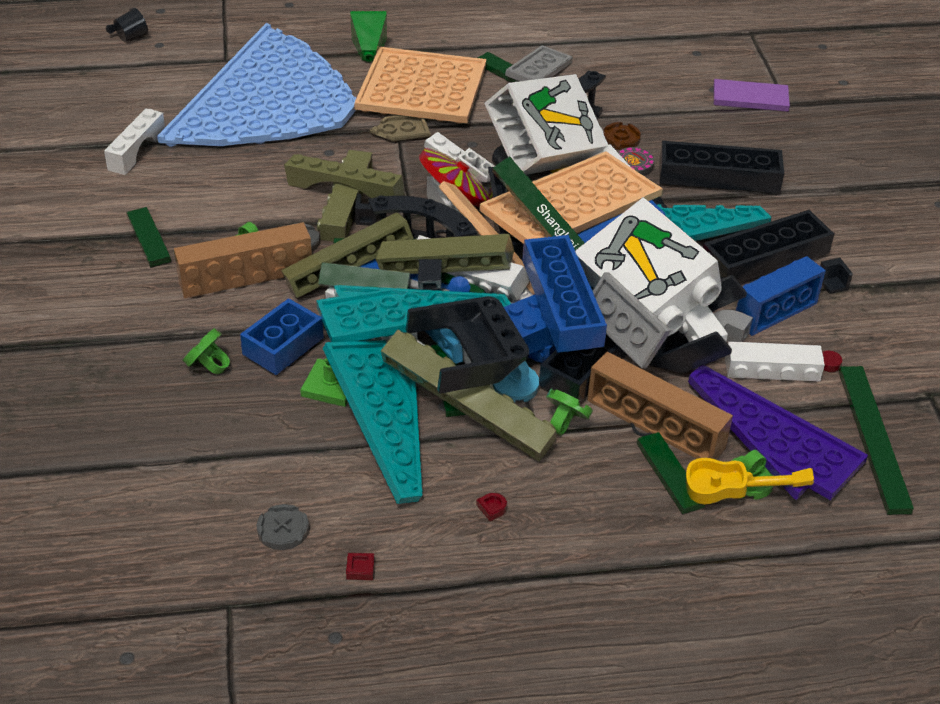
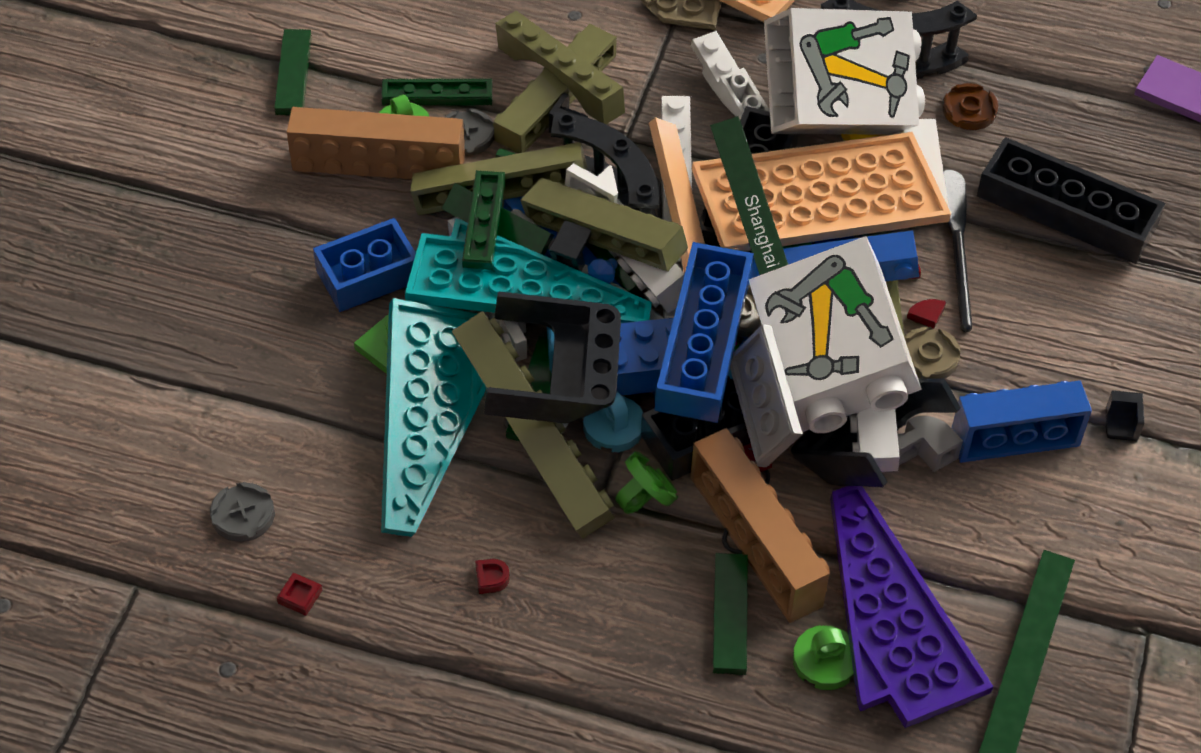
camera: 25 degrees right, 10 degrees up
(206, 351) = (270, 254): bright green tile -> none
(264, 220) = (439, 91): none -> dark green tile
(358, 277) = (483, 220): none -> dark green tile
(430, 231) = (599, 186): none -> white slope
(456, 172) = (691, 101): dish -> none
(638, 159) = (964, 151): dark grey tile -> none
(705, 222) = (988, 274): teal wing -> none
(716, 480) = (768, 647): yellow piece -> none
(770, 246) = (1053, 345): black brick -> none
(775, 361) = (957, 511): white brick -> none
(832, 361) = (1037, 536): dark red tile -> none

